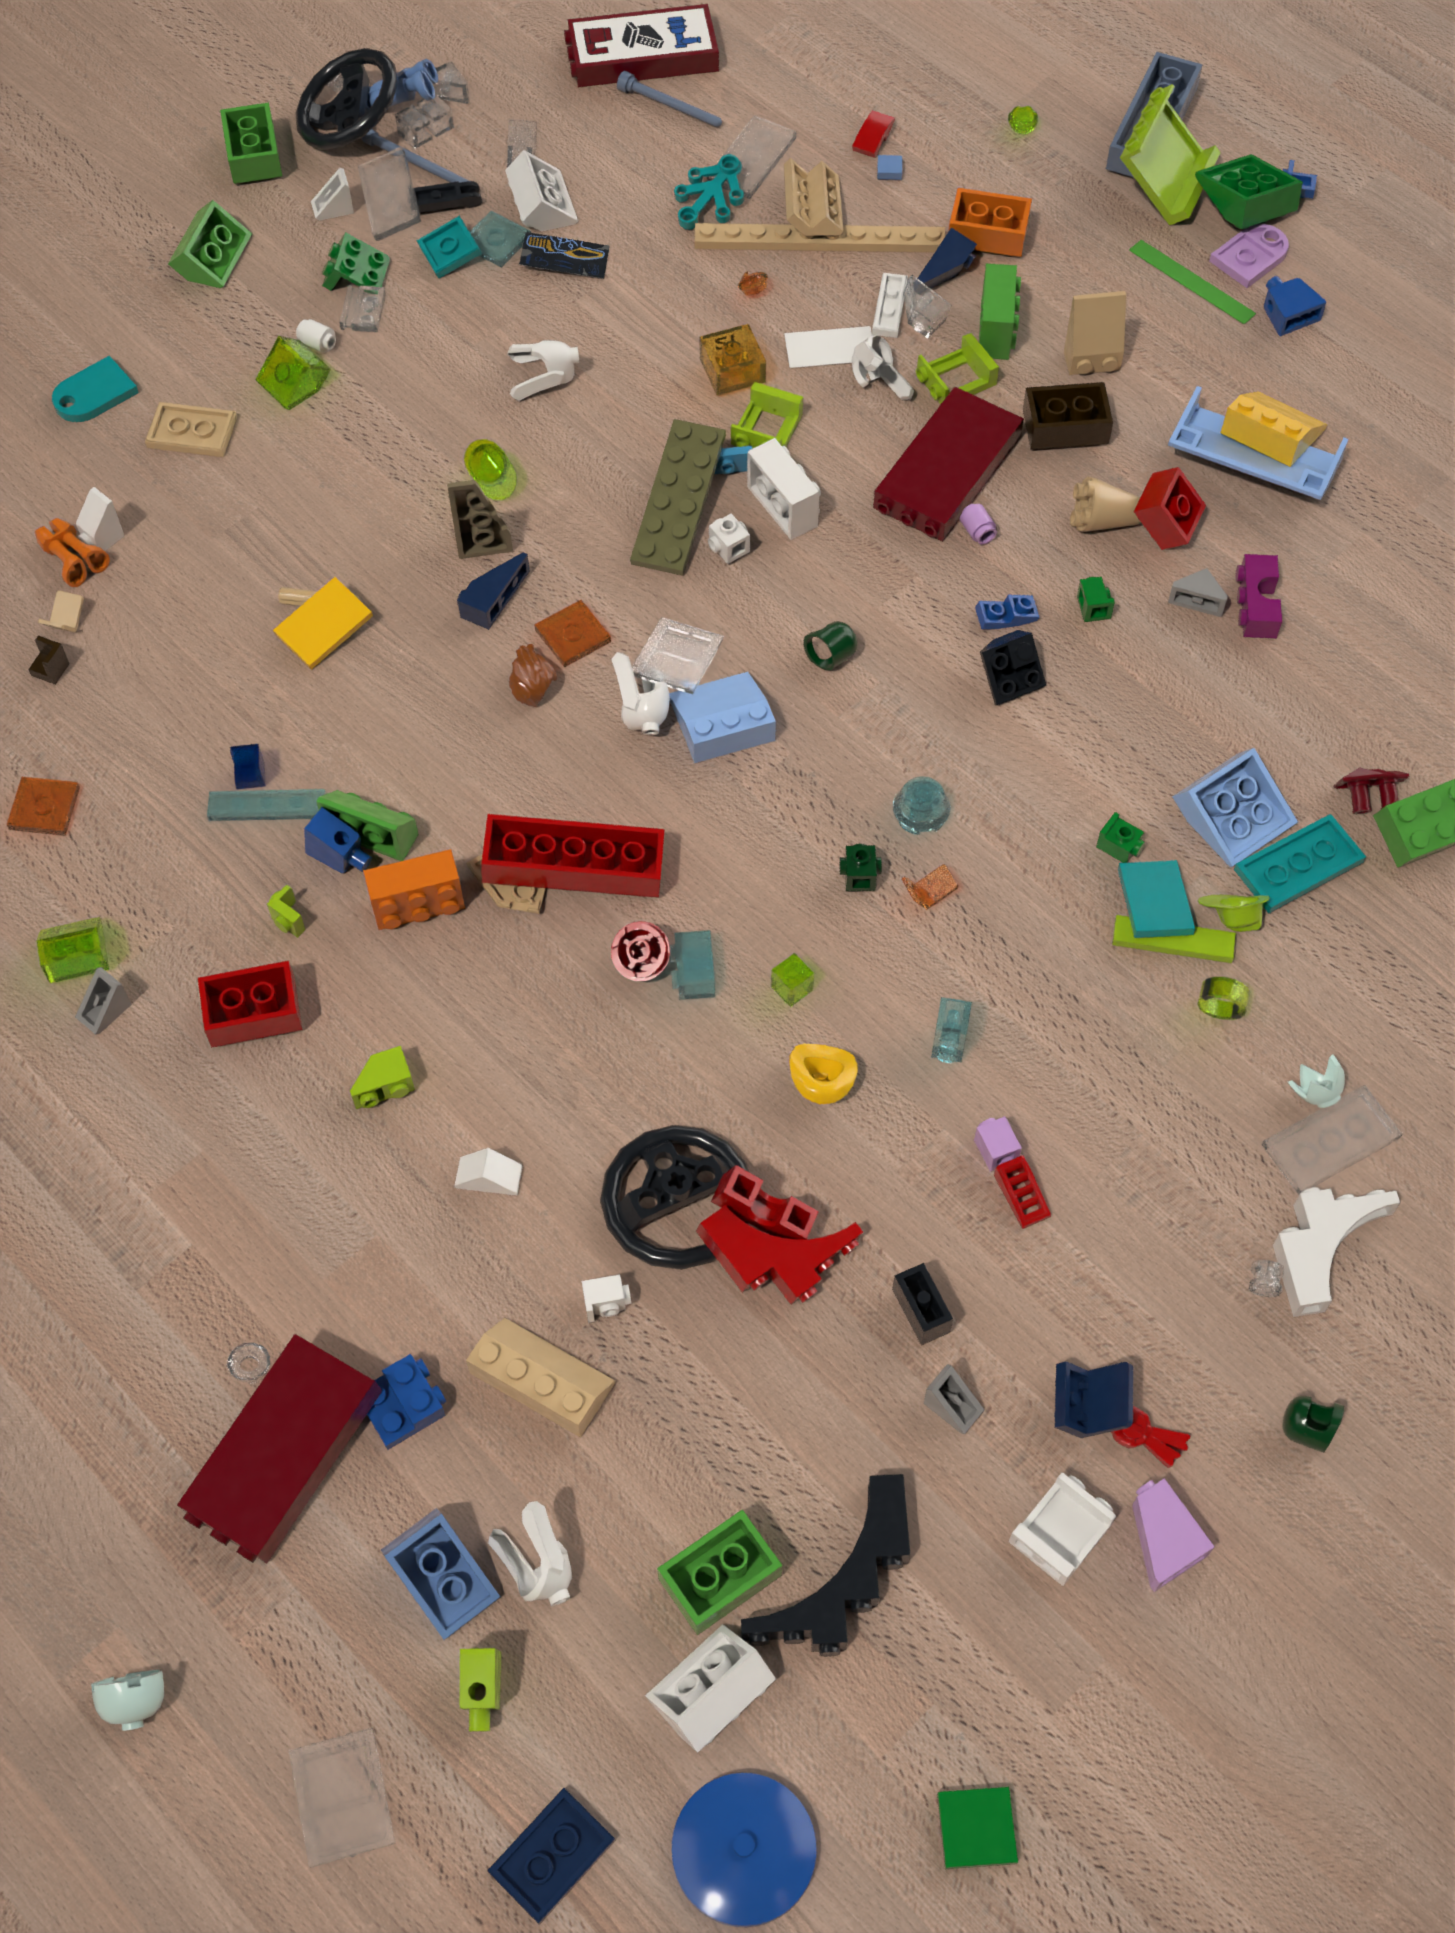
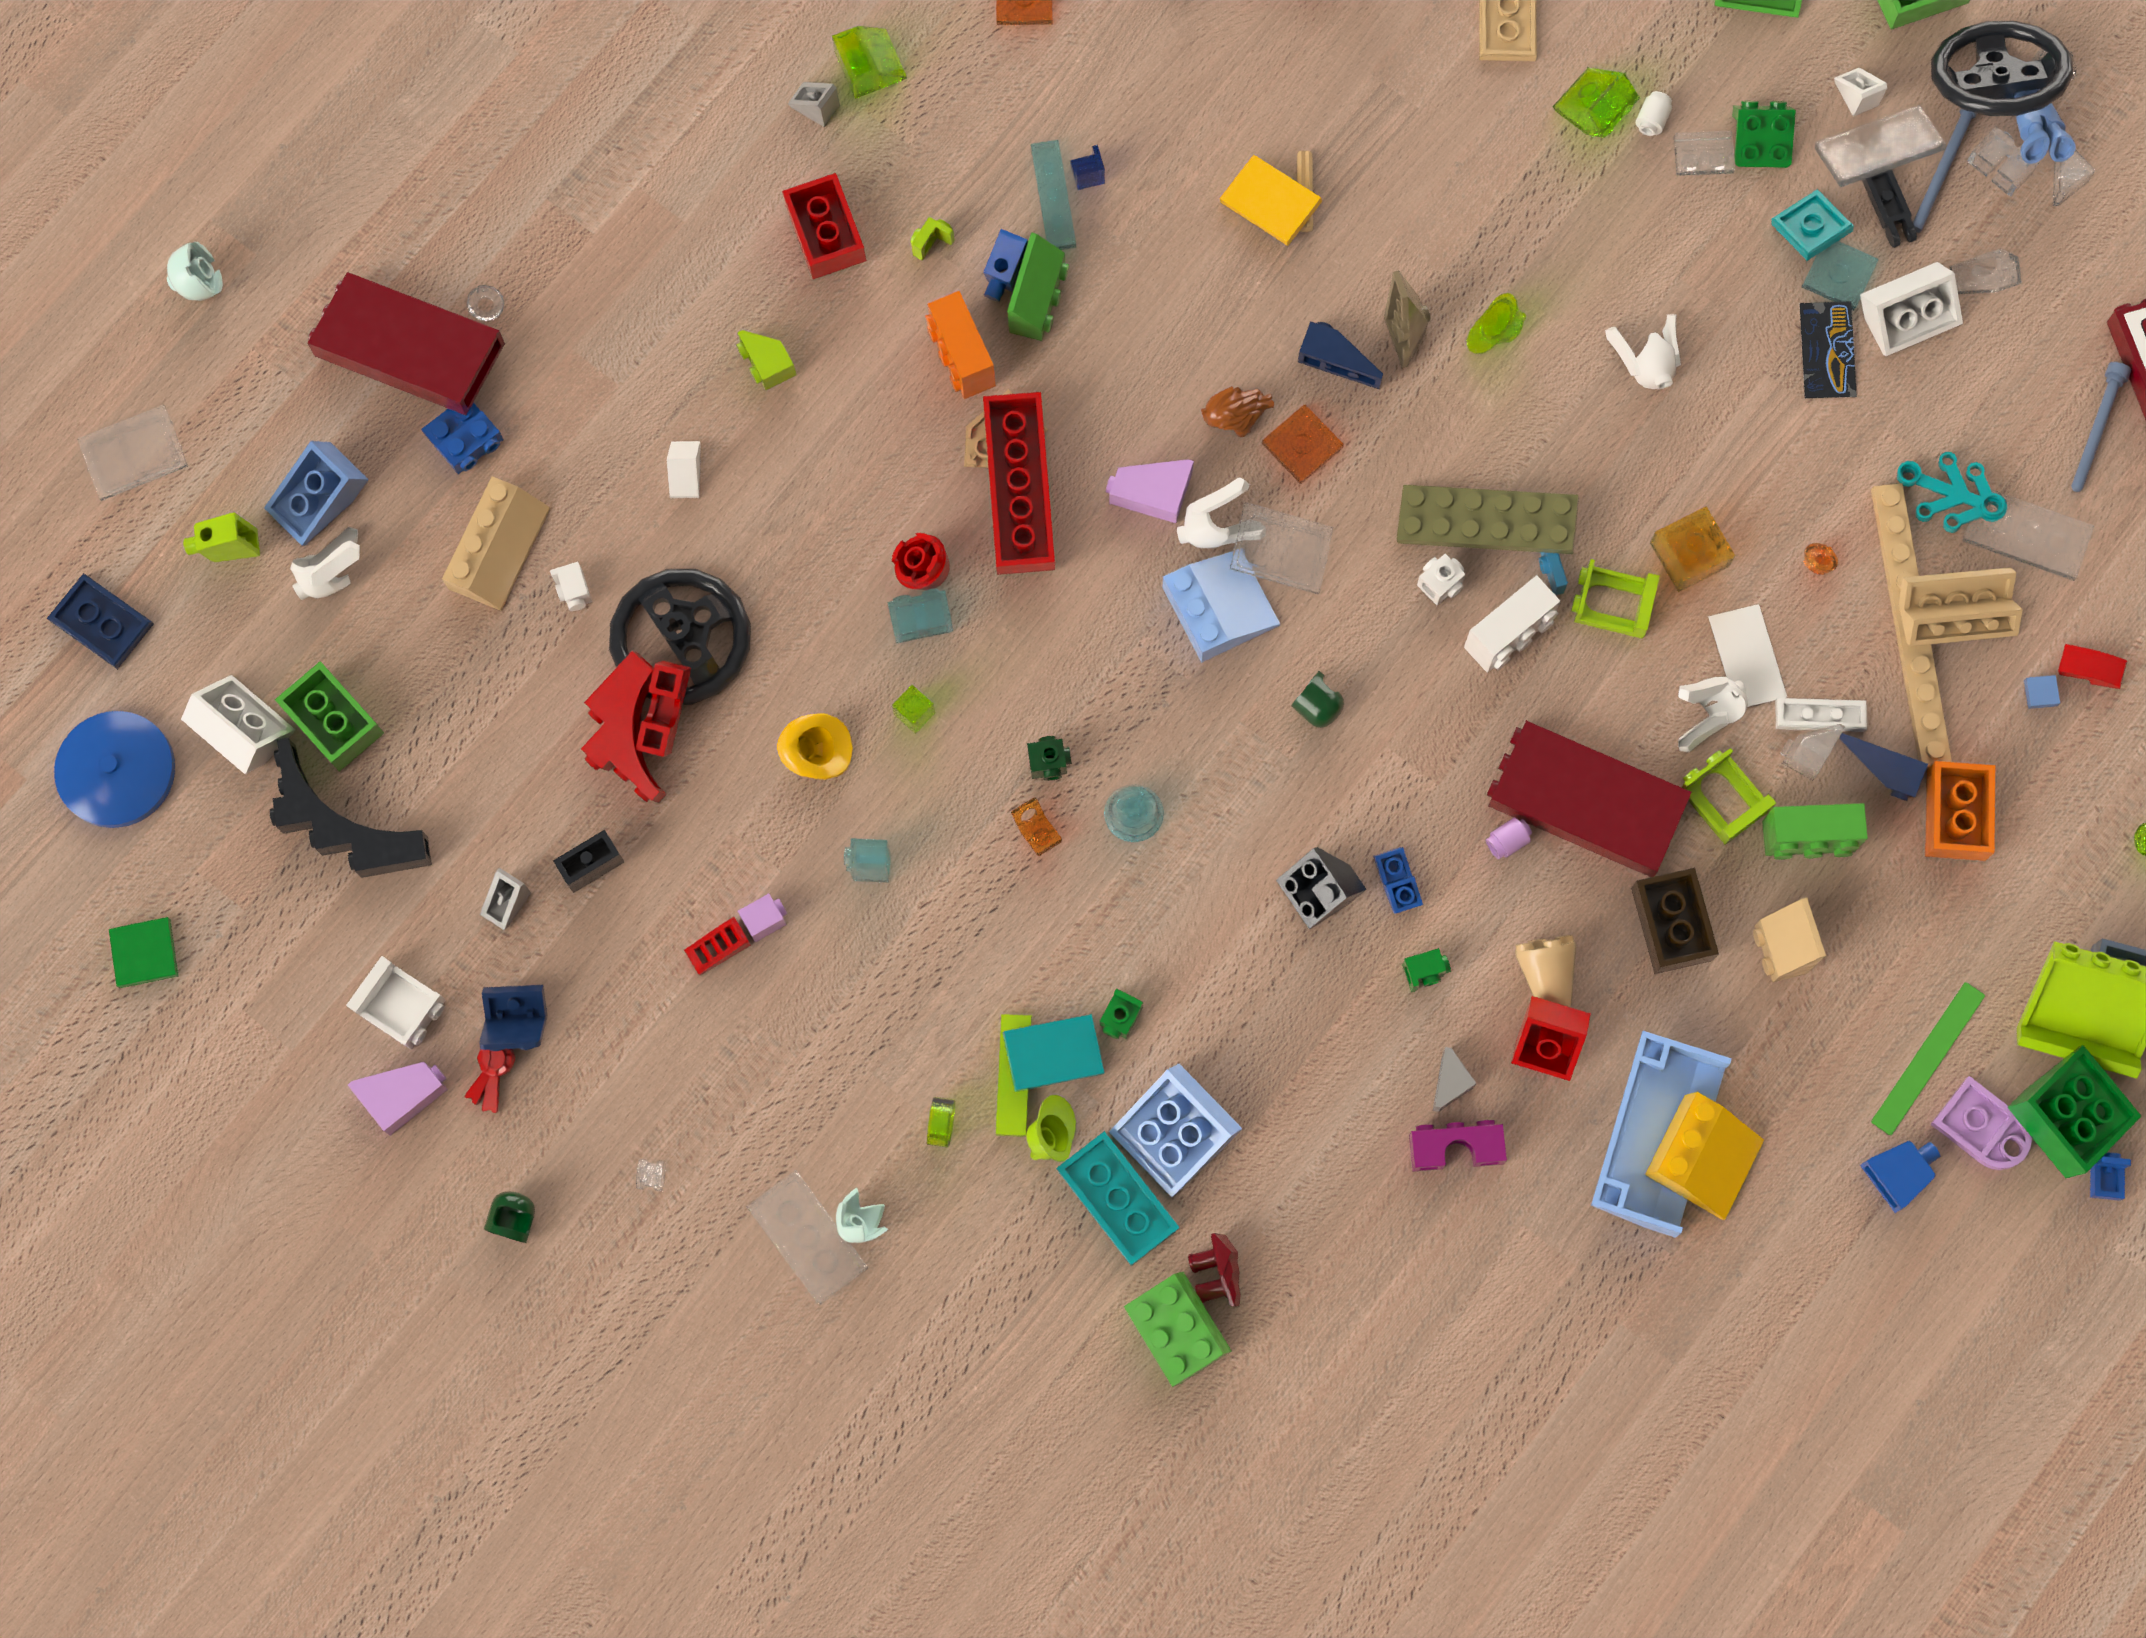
camera: 85 degrees right, 15 degrees up
(598, 751) = (1152, 488): none -> lavender slope
(1310, 1250) = (678, 1213): white arch -> none

